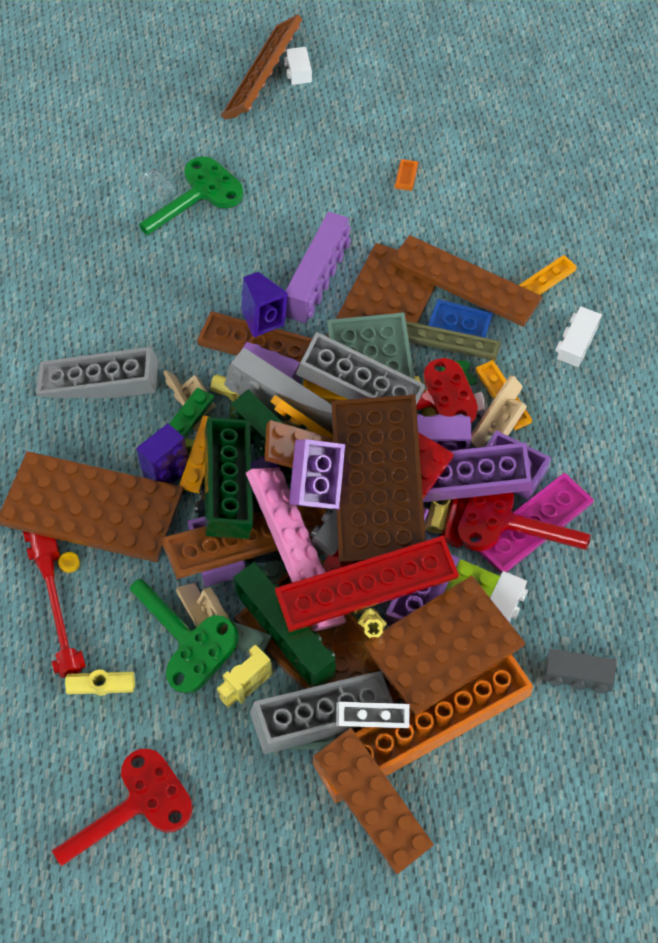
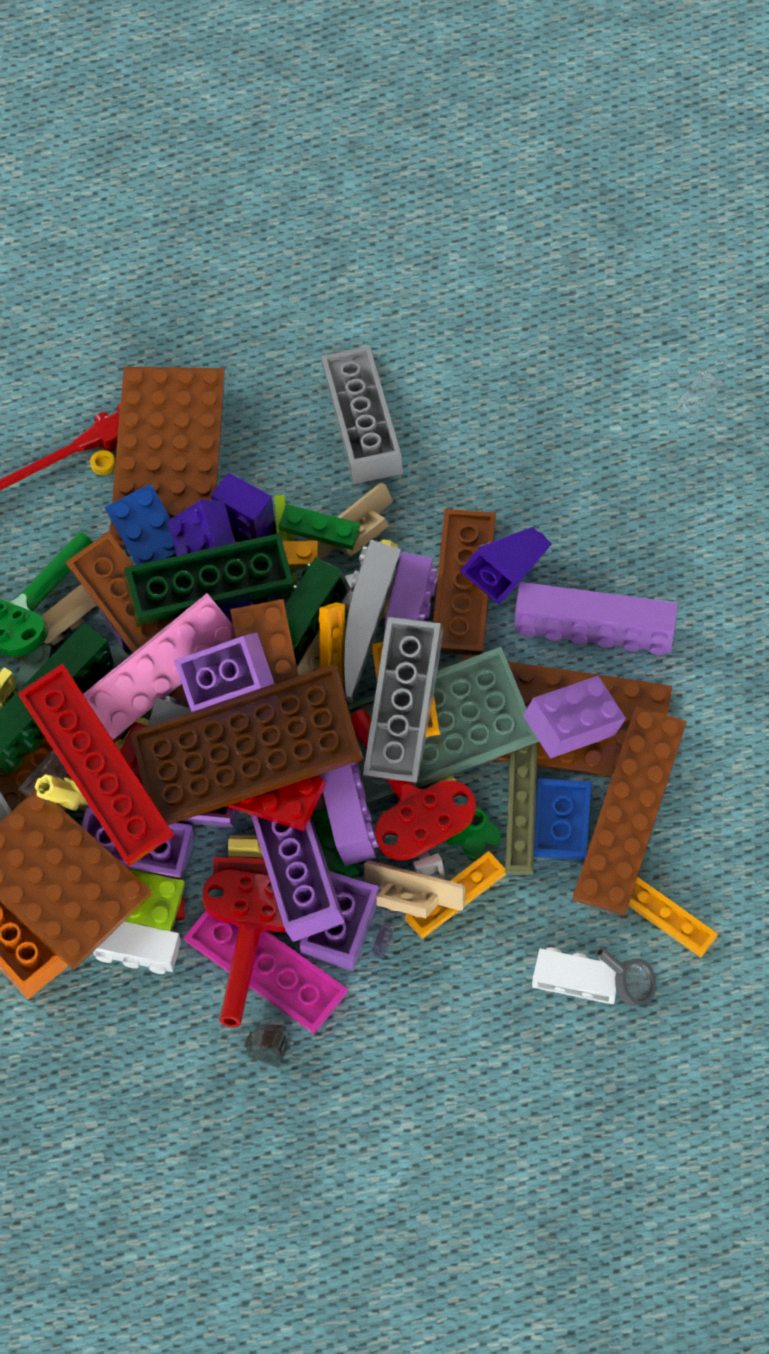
camera: 80 degrees right, 5 degrees up
(149, 524) = (143, 525): none -> blue plate
(183, 479) = (201, 527): none -> dark purple brick
(208, 183) = (713, 458): green piece -> none
(347, 644) = (50, 766): none -> clear tile
(395, 288) = (574, 716): none -> medium lavender brick
(532, 441) = (383, 941): none -> tile
(580, 671) = (66, 1049): dark grey brick -> none
(590, 303) = (633, 978): none -> dark grey piece
(602, 526) = (268, 1044): none -> clear smoke slope

